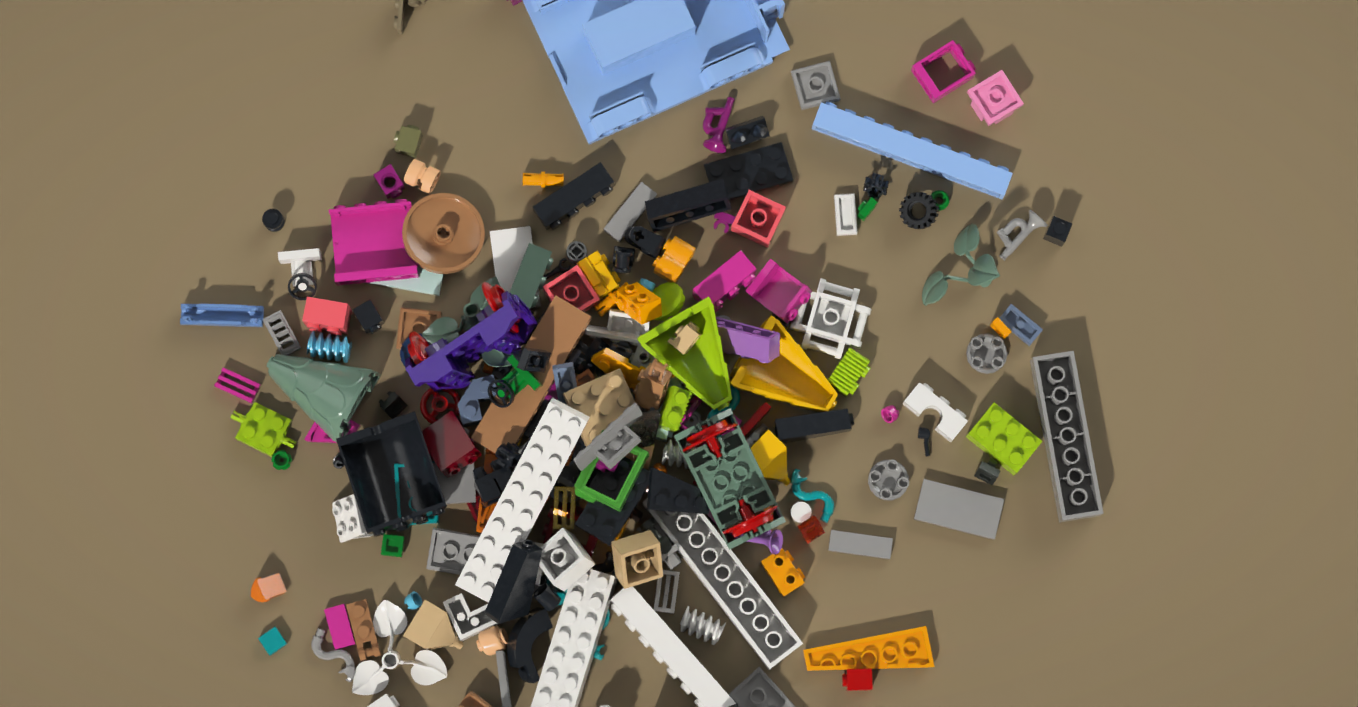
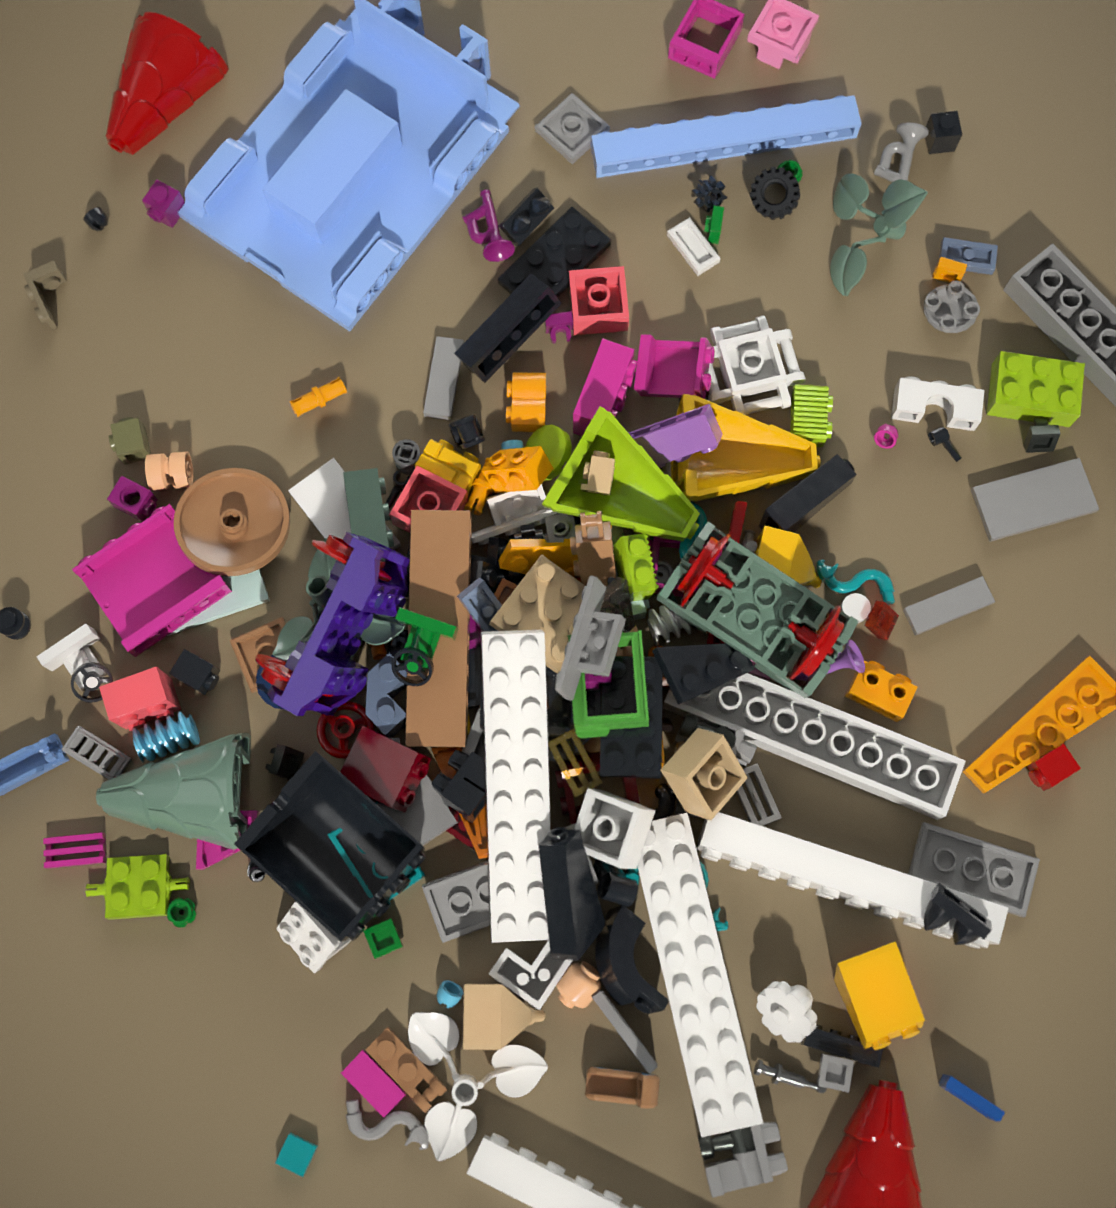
camera: 25 degrees left, 5 degrees down
(267, 588) = (252, 1088): orange tile -> none
(508, 455) = (465, 738): black gear -> none
(532, 359) = (427, 600): black tile -> none
(574, 196) = (366, 395): black brick -> none
(647, 241) = (480, 398): black piece -> none
(701, 626) = (825, 812): white piece -> none
(888, 479) = (933, 511): light grey dish -> none

